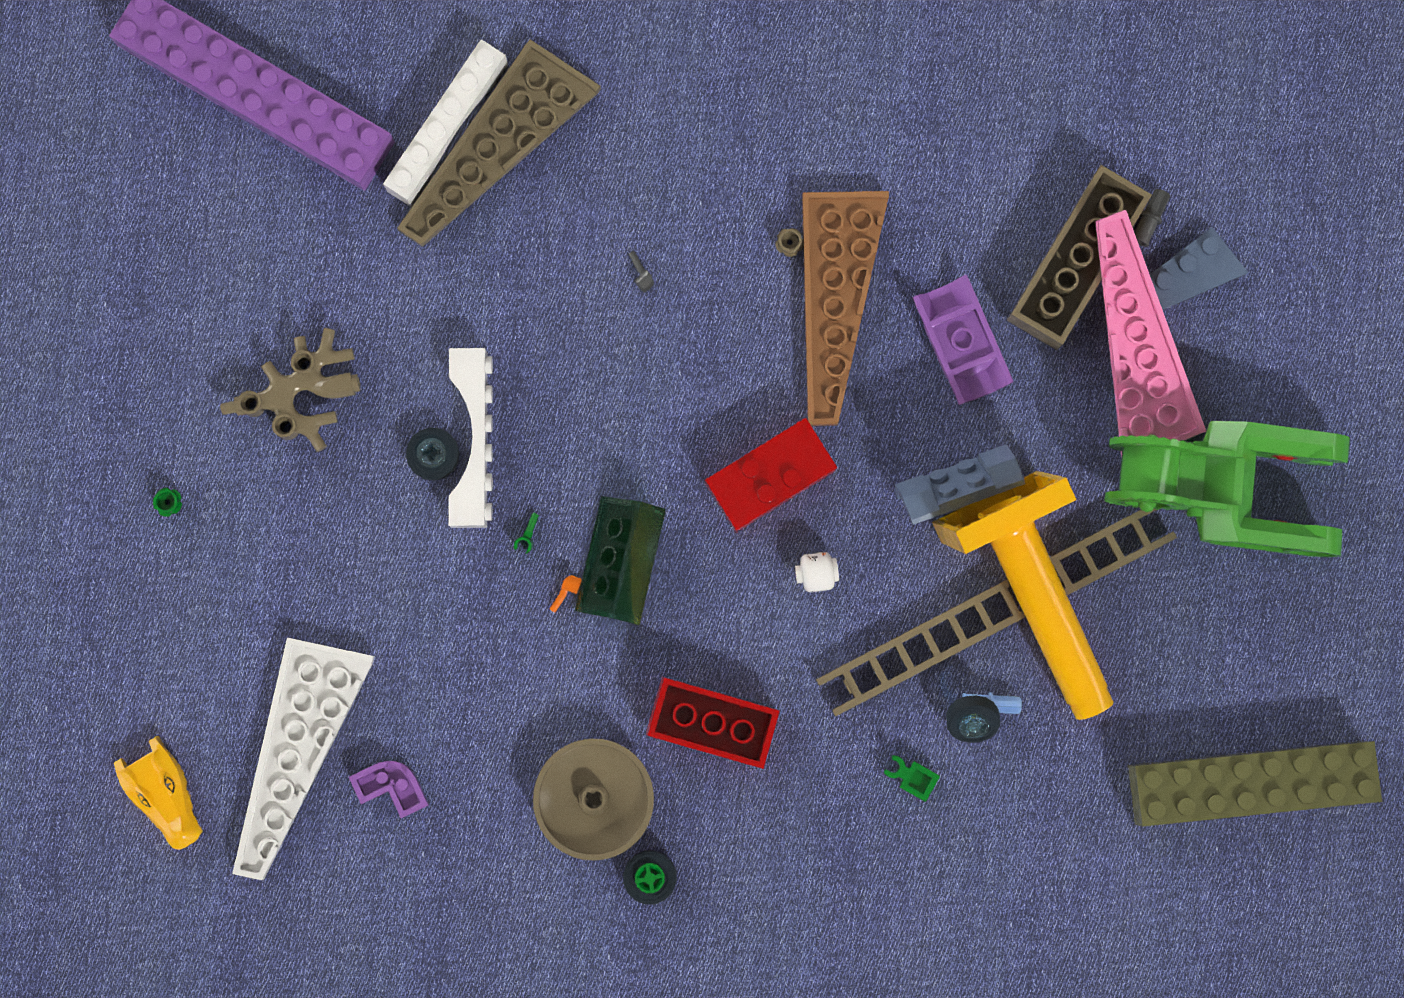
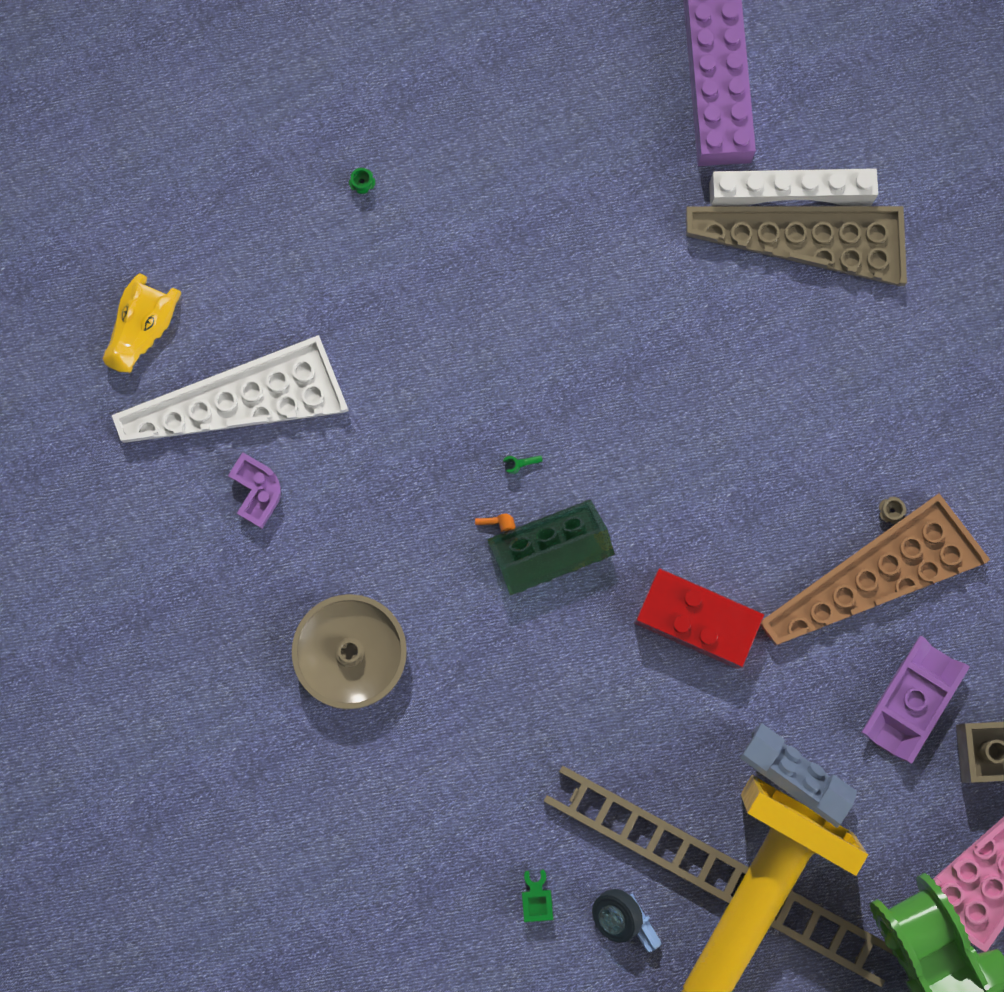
camera: 60 degrees right, 5 degrees down
(283, 388) = (505, 205): dark tan plant -> none
(443, 454) = (533, 358): black wheel -> none
(469, 499) = (518, 399): white arch -> none
(639, 878) = (310, 732): black wheel -> none
(644, 280) = (781, 418): dark grey hand -> none
(712, 722) = (472, 705): red brick -> none
(817, 572) = (648, 708): white head -> none

